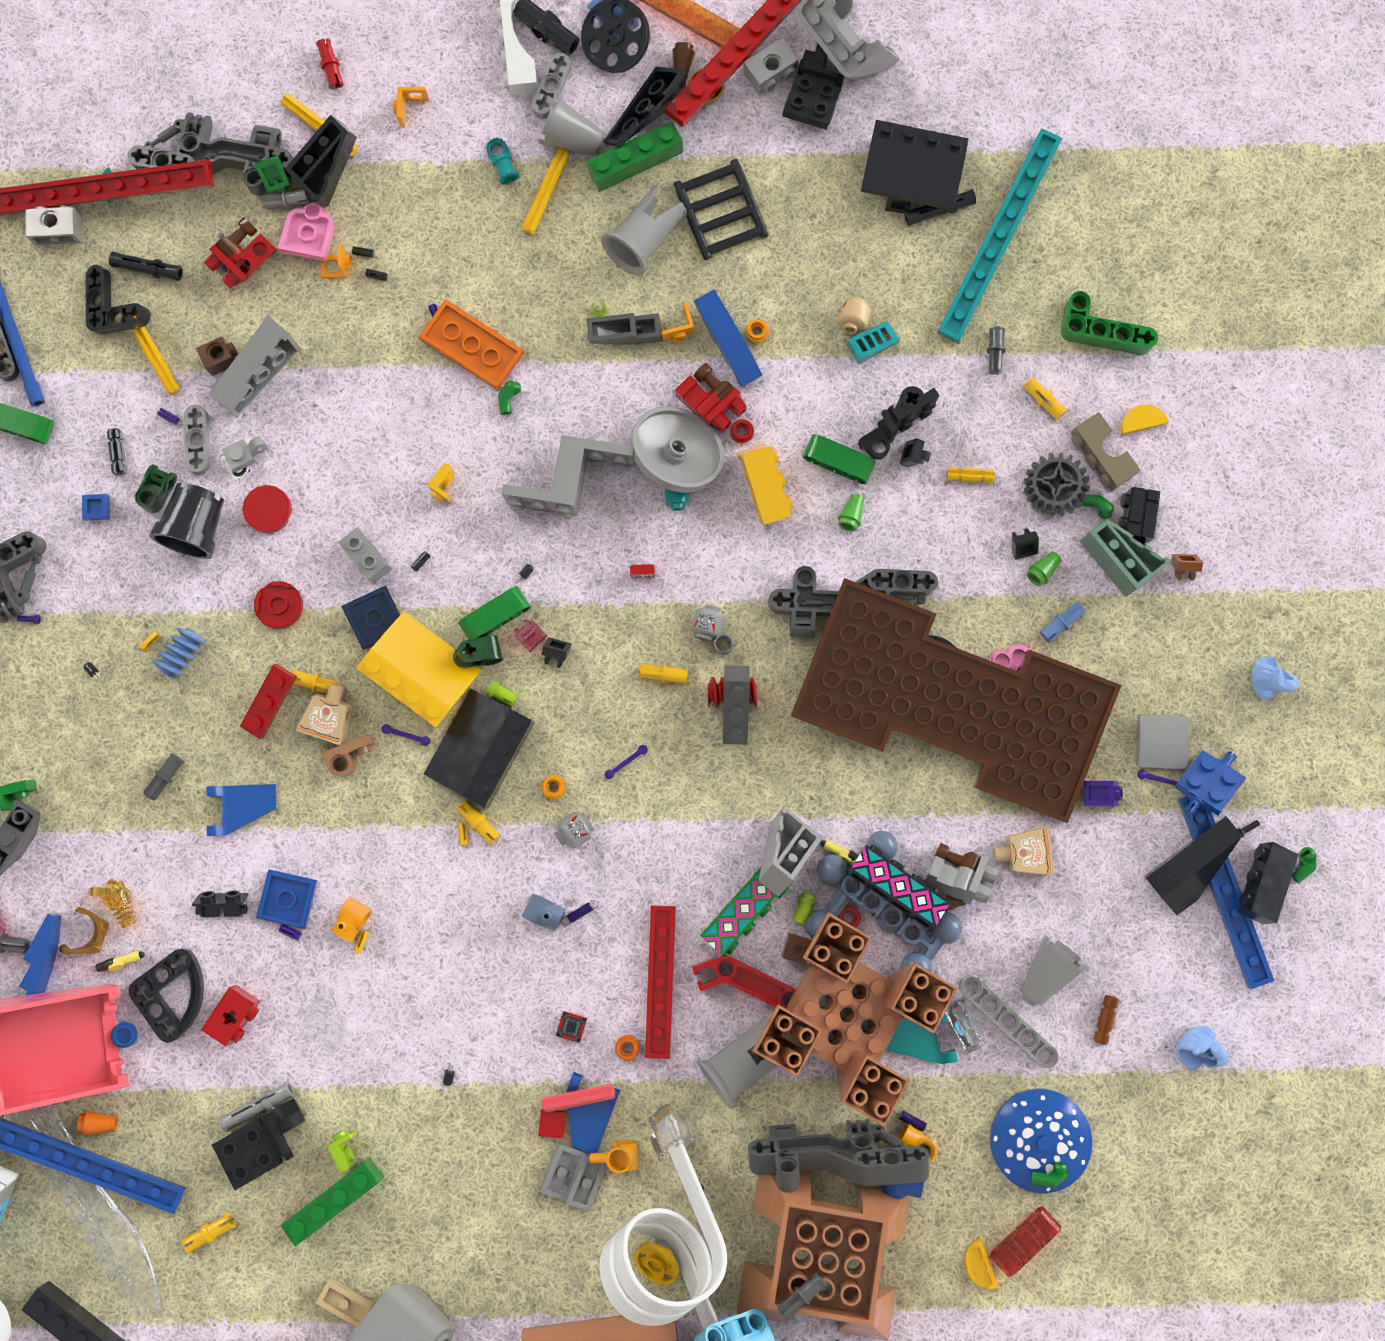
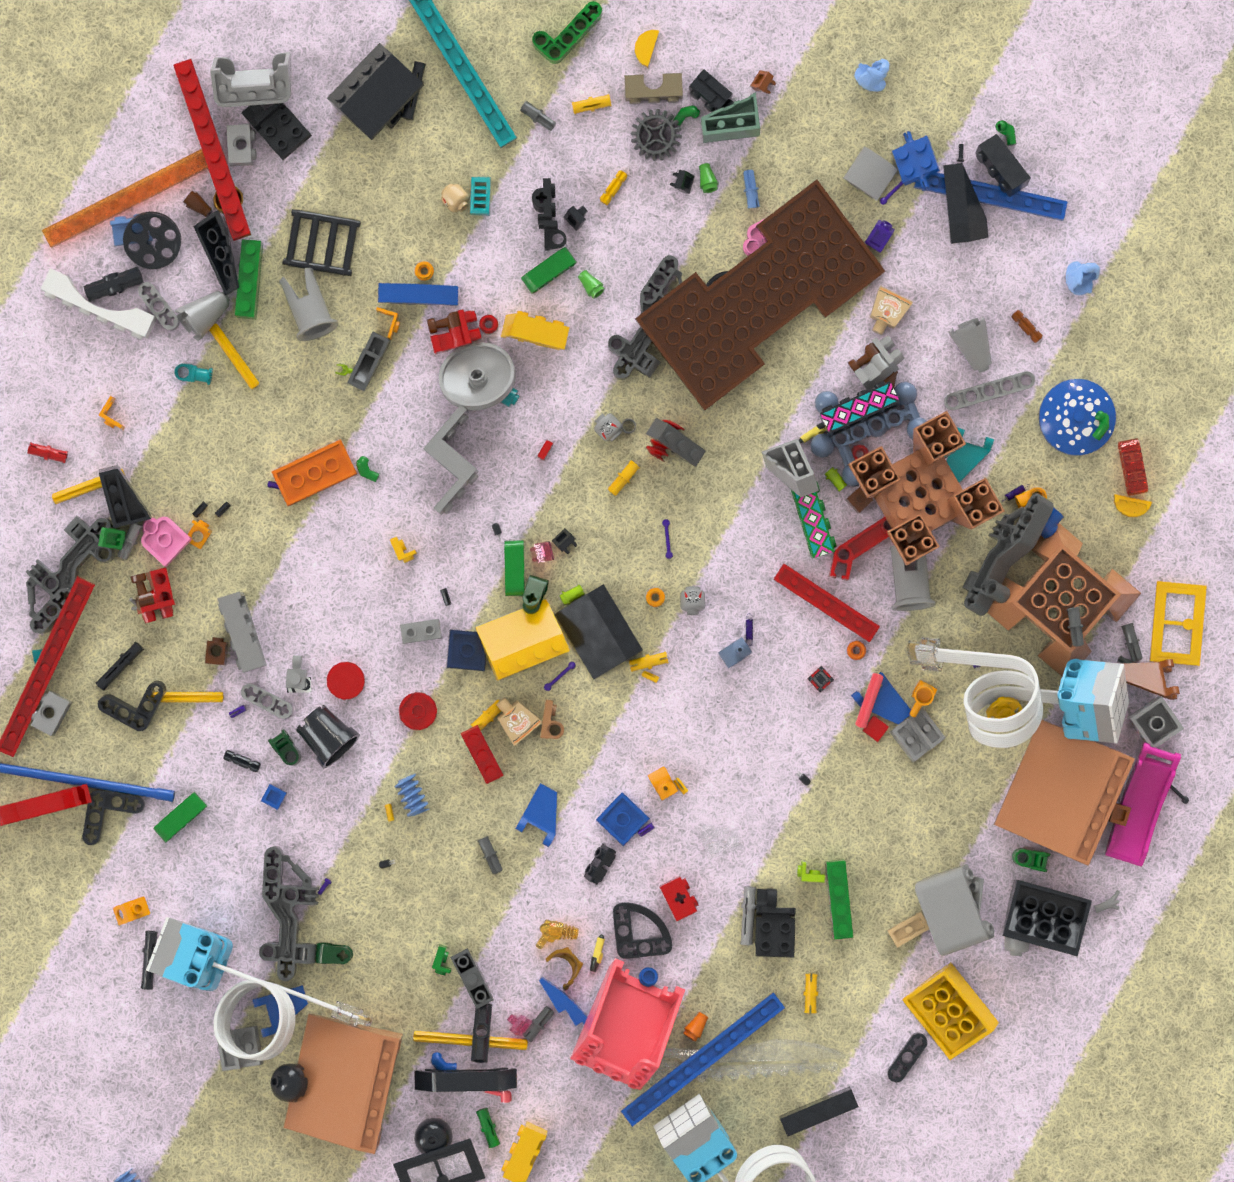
camera: 60 degrees left, 5 degrees up
(965, 1025) = (974, 420): clear slope -> none

